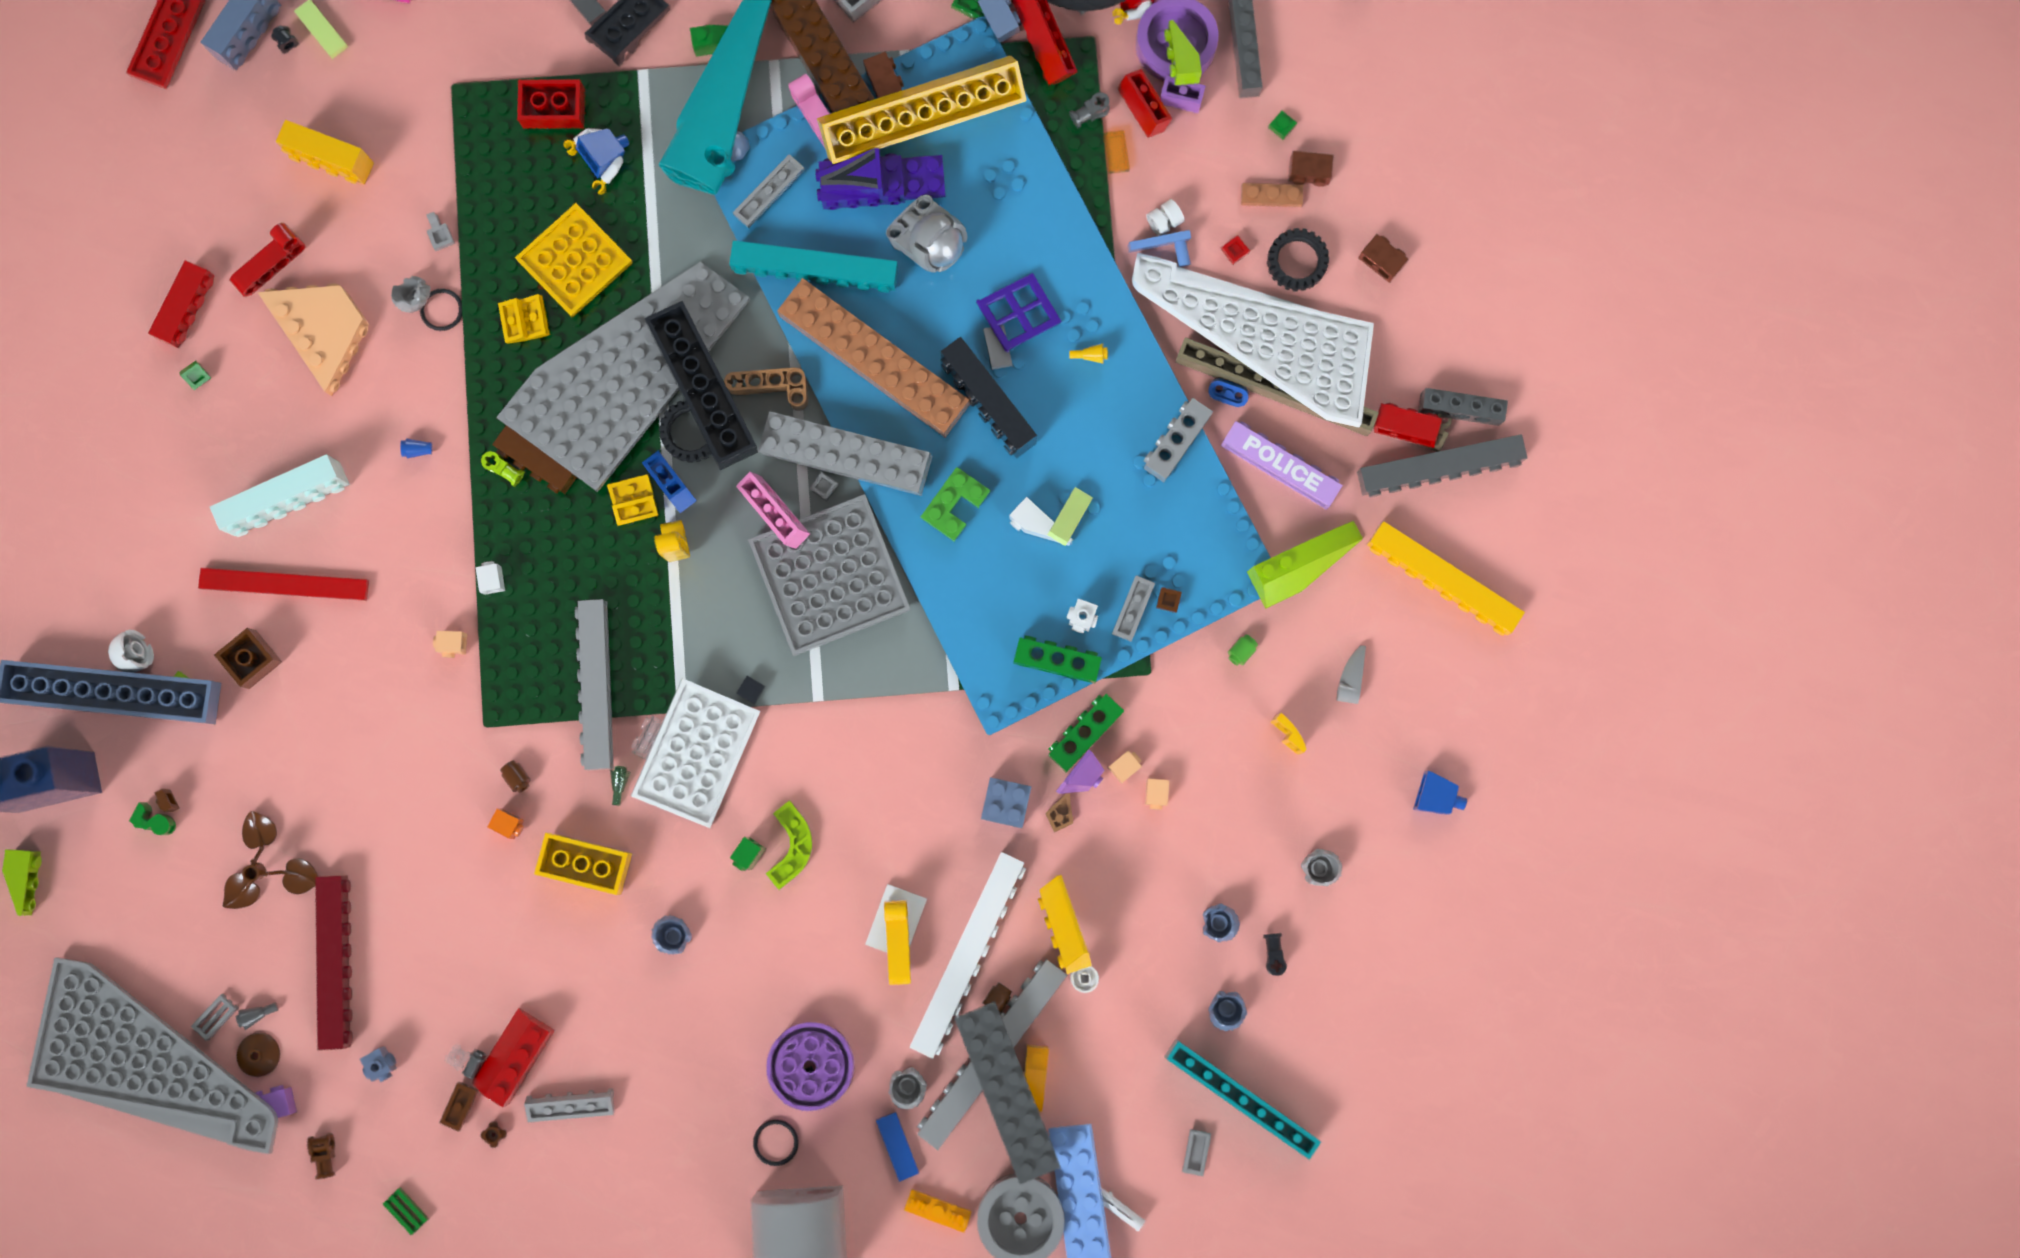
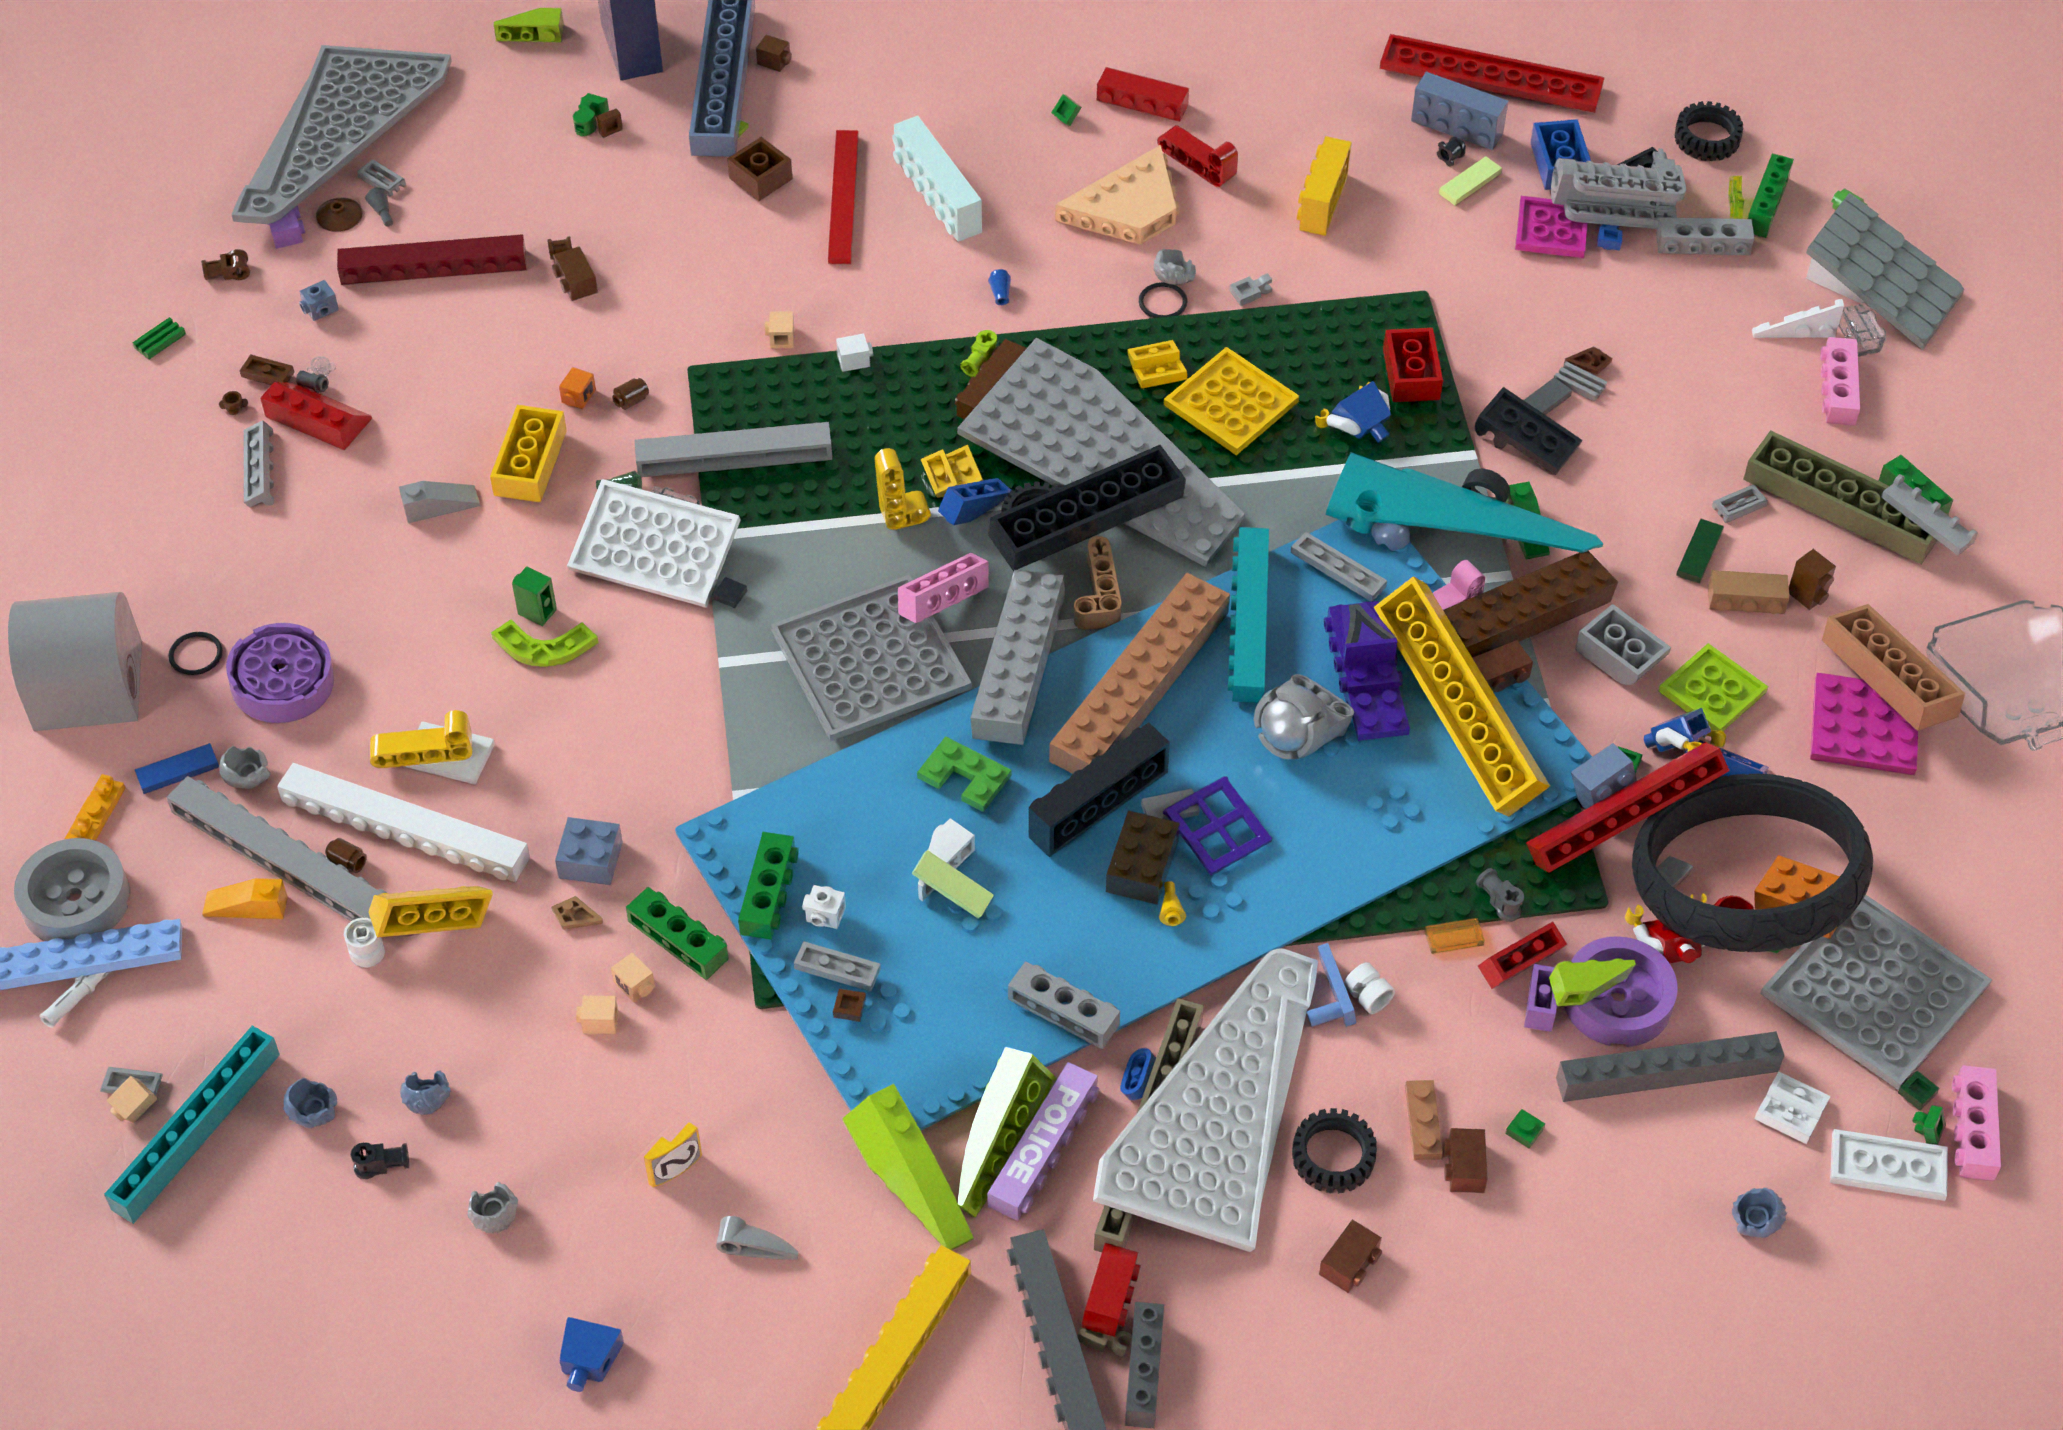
camera: 90 degrees right, 30 degrees down
(87, 644) = (773, 53): none -> reddish brown brick
(129, 652) = (766, 82): white cylinder -> none
(239, 887) = (511, 187): reddish brown plant -> none
(331, 848) = (559, 246): none -> reddish brown bush
(363, 828) = (575, 273): none -> reddish brown brick
(624, 942) = (433, 499): none -> light grey slope
(670, 935) = (443, 535): sand blue hair -> none
(696, 62) = (1489, 480): none -> black tyre
(824, 486) = (978, 648): light grey tile -> none
(1007, 1092) = (227, 853): dark grey brick -> none
(1049, 370) = (1142, 857): none -> dark brown brick
(1083, 776) = (622, 921): medium lavender slope -> none
(1218, 1149) = (131, 1100): none -> light nougat brick
(1235, 250) = (1338, 1075): red plate -> none
(1242, 650) = (788, 1105): bright green brick -> none
(1258, 488) = (1001, 1120): none -> lime wedge

